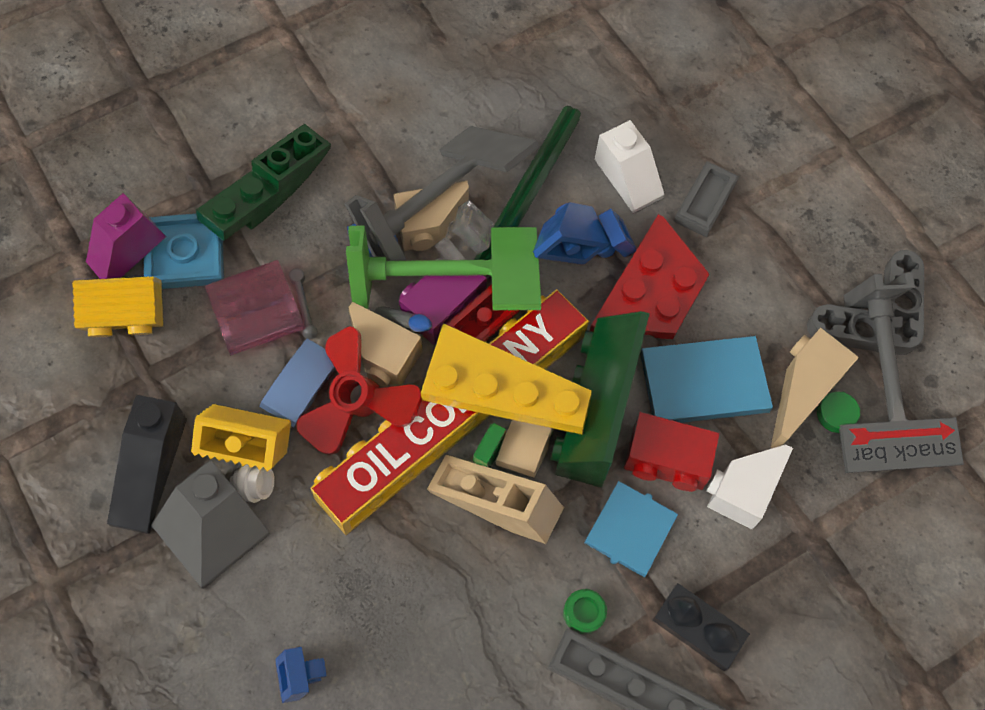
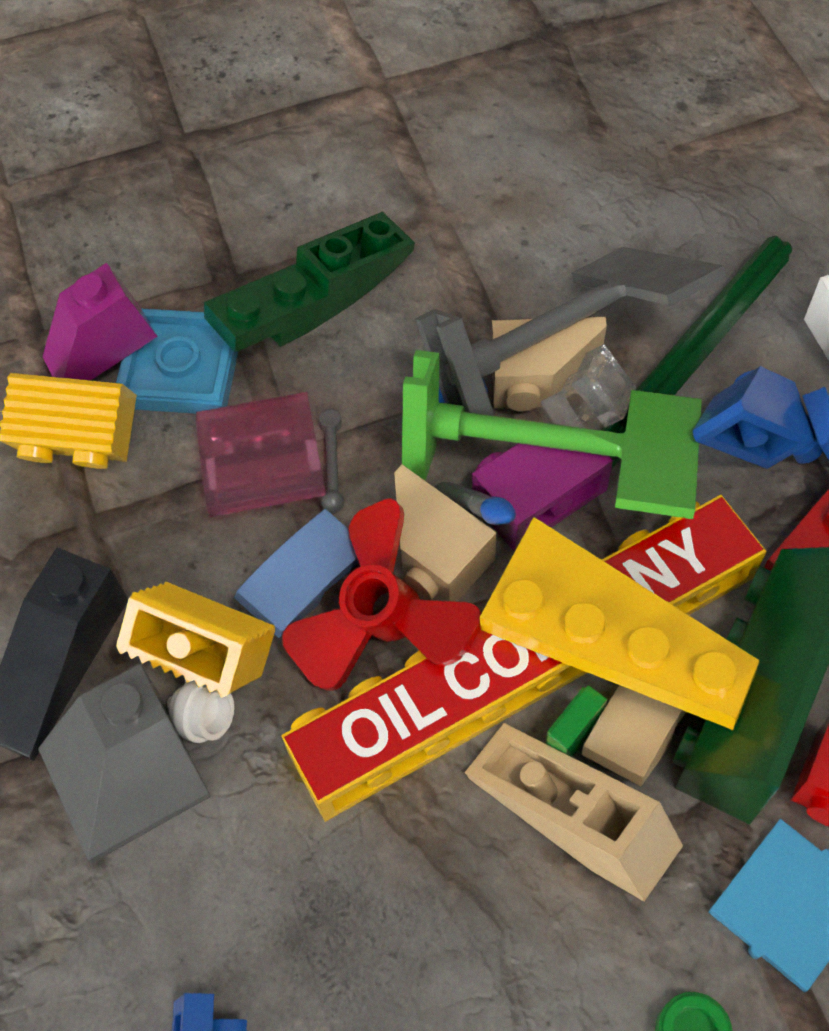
camera: 20 degrees right, 5 degrees down
(480, 319) = (595, 521): red slope -> none

